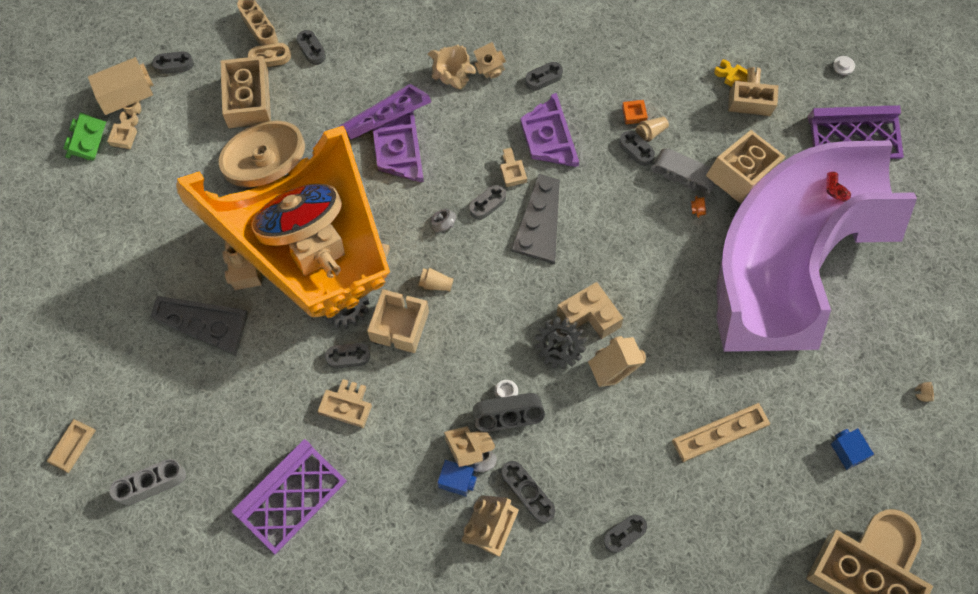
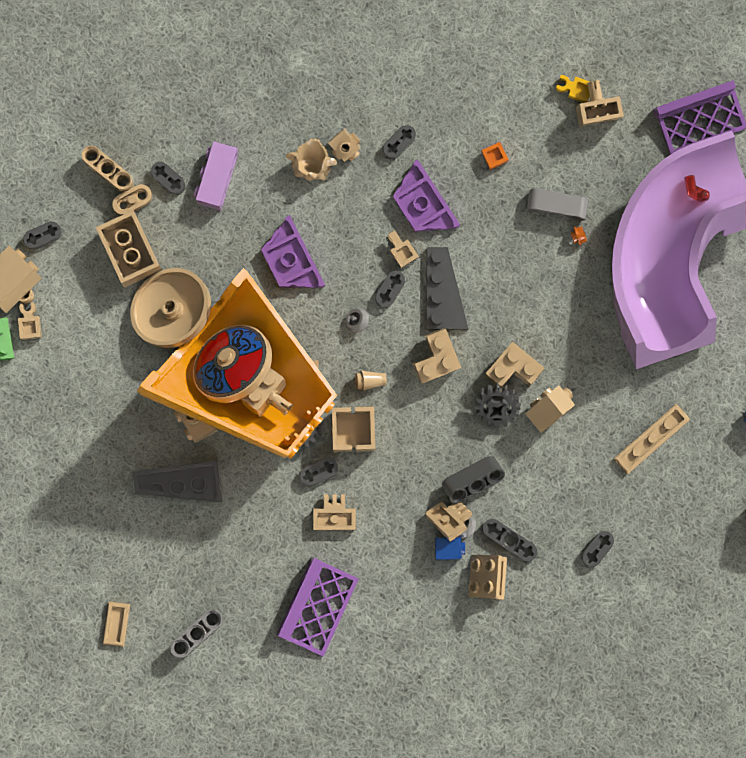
camera: 20 degrees left, 15 degrees up
(356, 55) = (216, 175): none -> lavender brick
(388, 109) = (267, 226): medium lavender wing -> none
(505, 388) = (463, 459): white plate -> none
(516, 281) = (442, 358): none -> tan brick
(634, 150) = (510, 188): dark grey beam -> none
(652, 128) = (515, 168): tan cone -> none
(744, 165) = (611, 188): tan brick -> none
(844, 65) = (673, 45): white plate -> none

